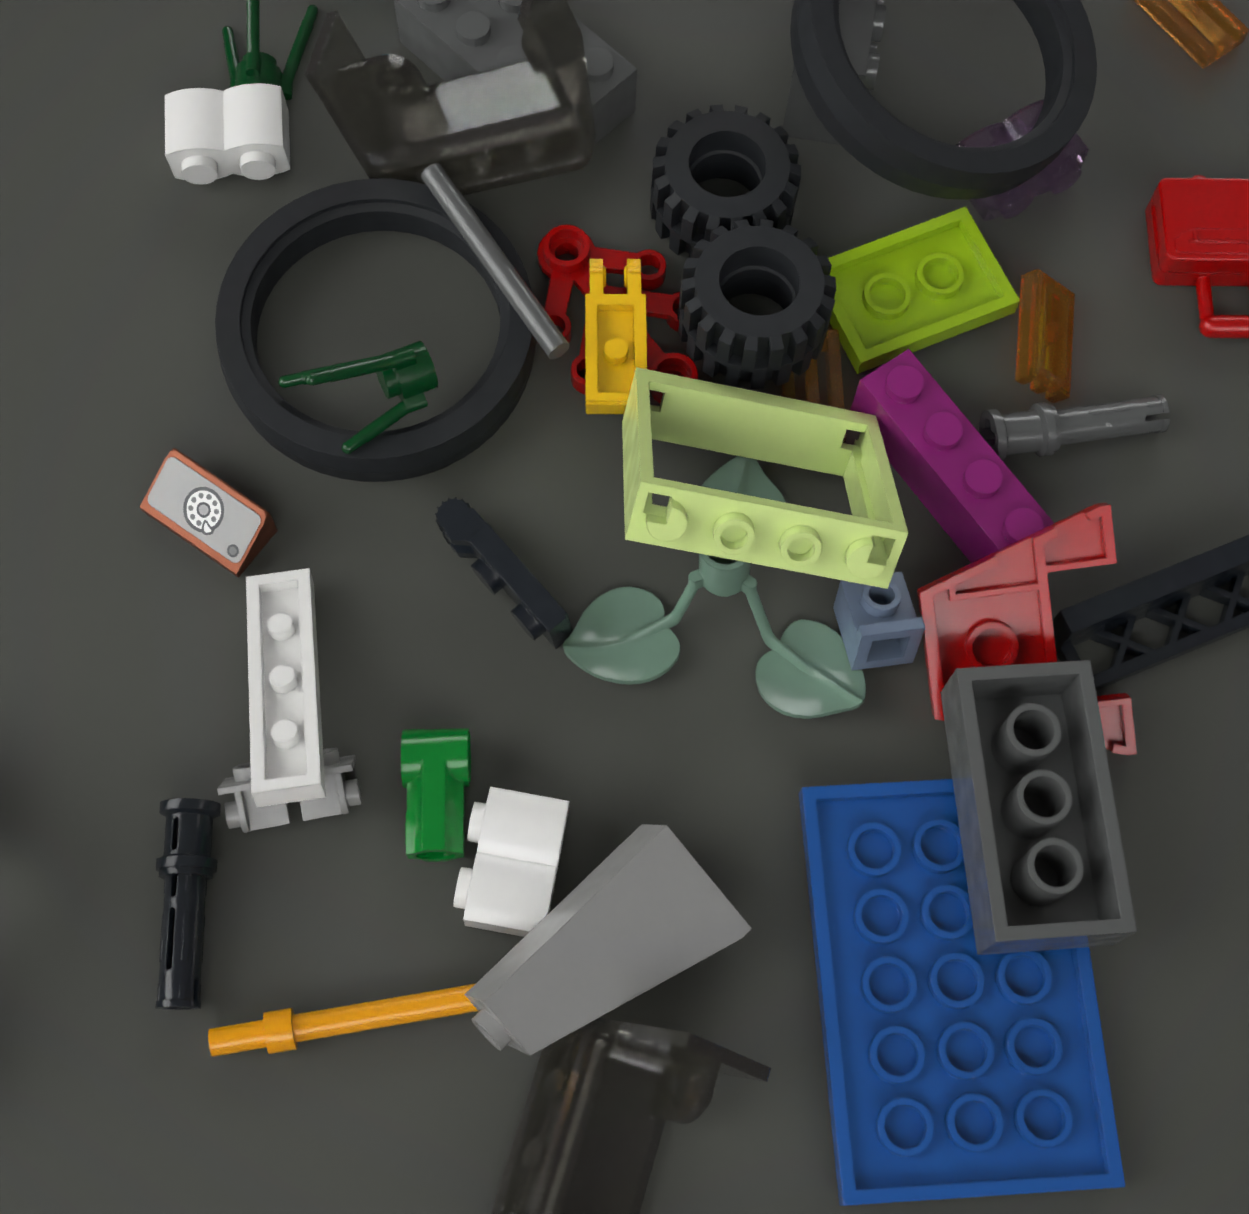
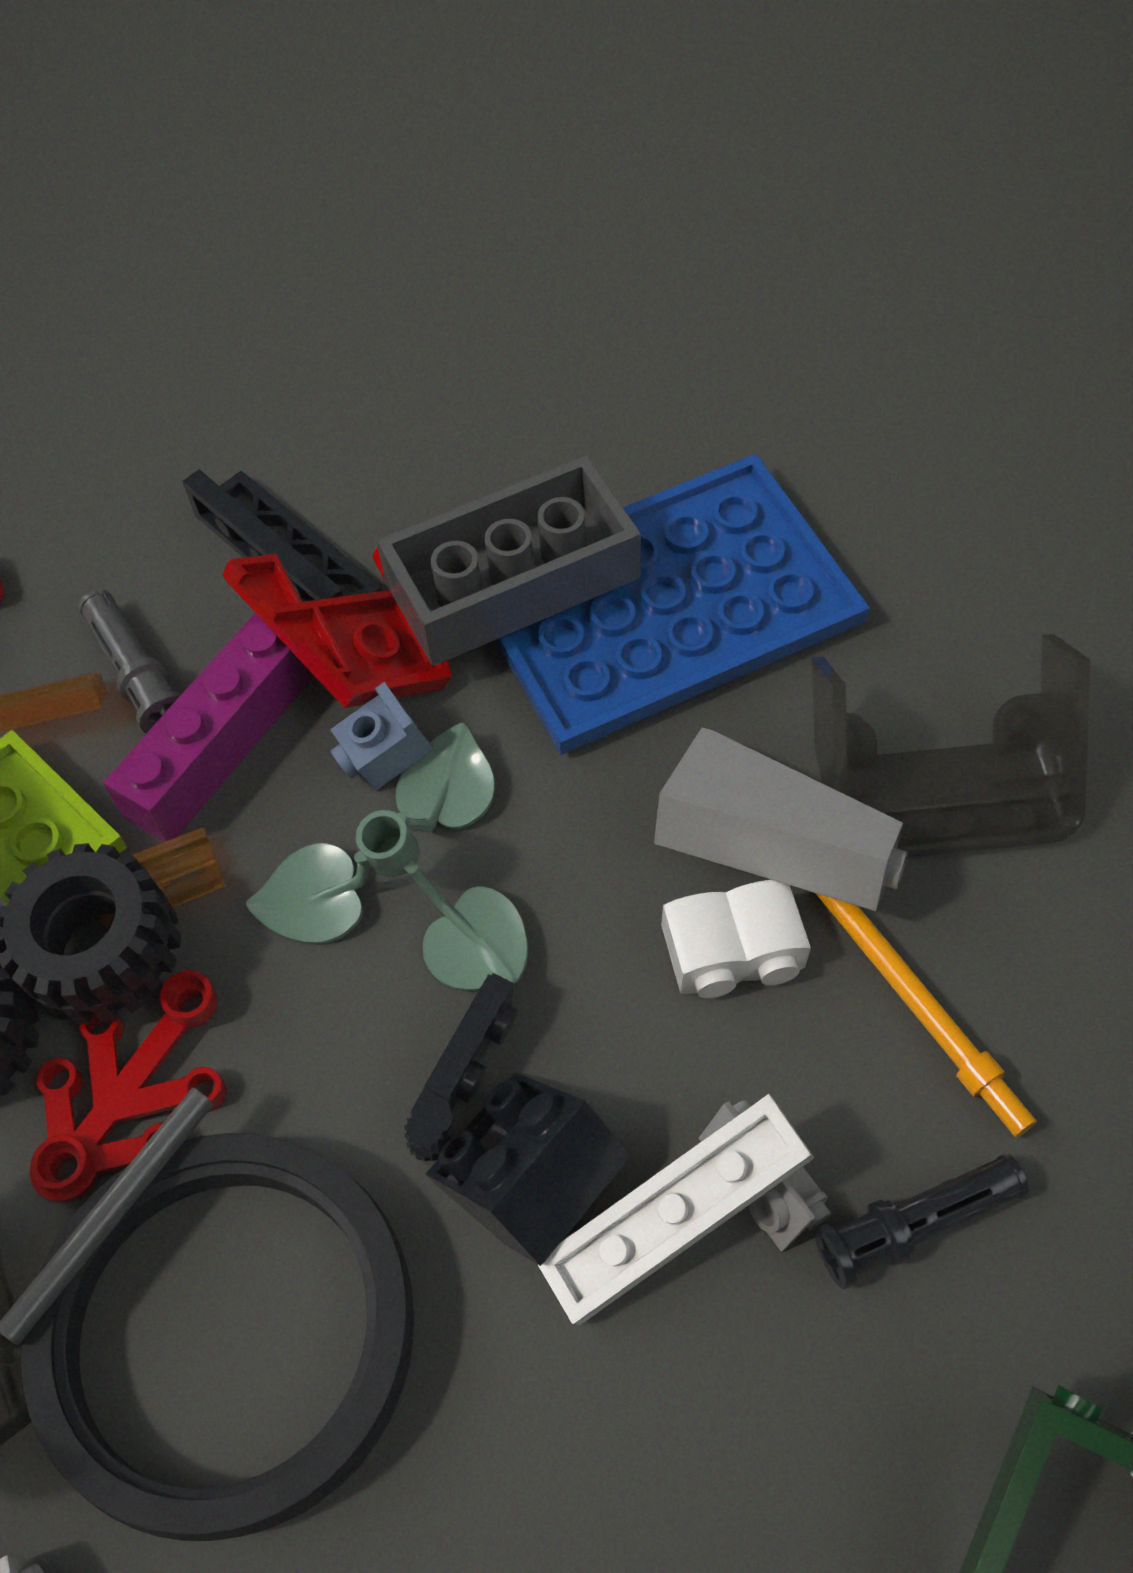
camera: 105 degrees left, 10 degrees down
(208, 513) = (514, 1416): slope -> none
(389, 592) = (529, 1165): none -> black slope
(400, 372) = (290, 1239): dark green plant -> none
(435, 775) = (688, 1042): green piece -> none
(613, 339) = (161, 1061): yellow hinge -> none
(752, 528) = (234, 960): yellowish green window -> none

